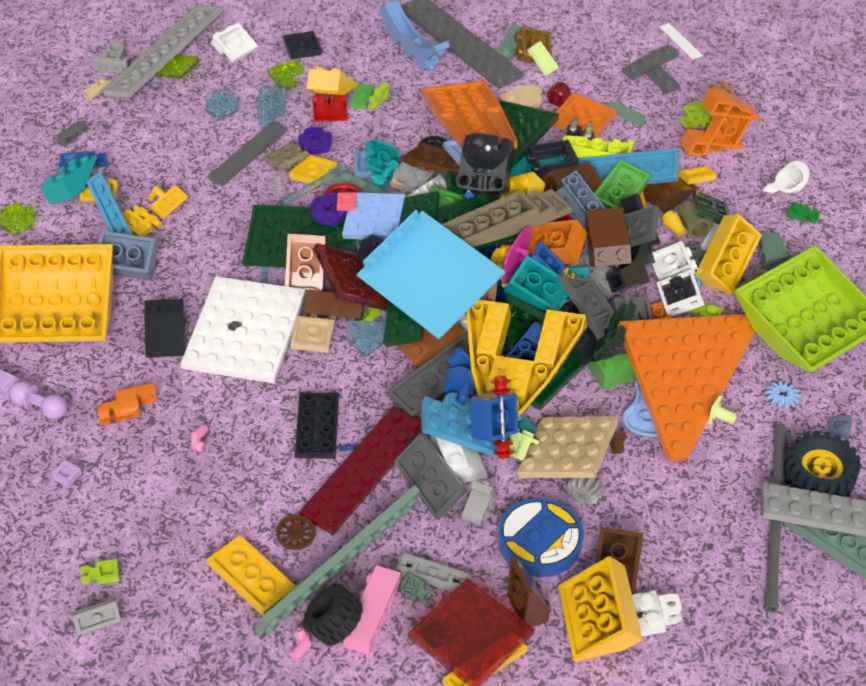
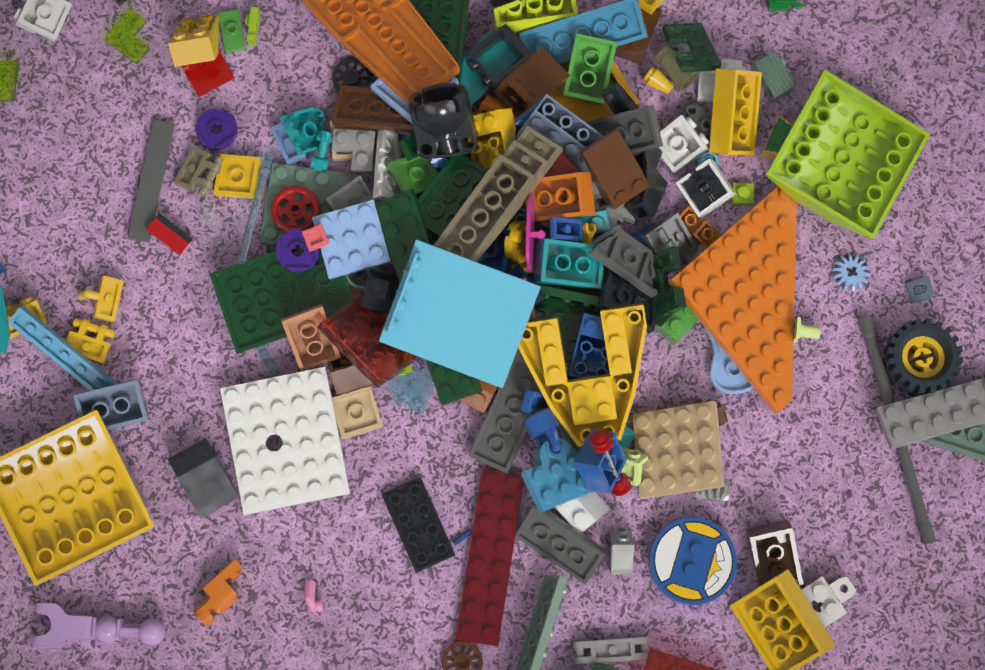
camera: 25 degrees left, 30 degrees up
(222, 105) = (89, 126): clear light blue plate -> none
(240, 183) = (169, 234): none -> red tile
(270, 104) = (141, 104): clear light blue plate -> none
(526, 595) = (714, 642): reddish brown slope -> none

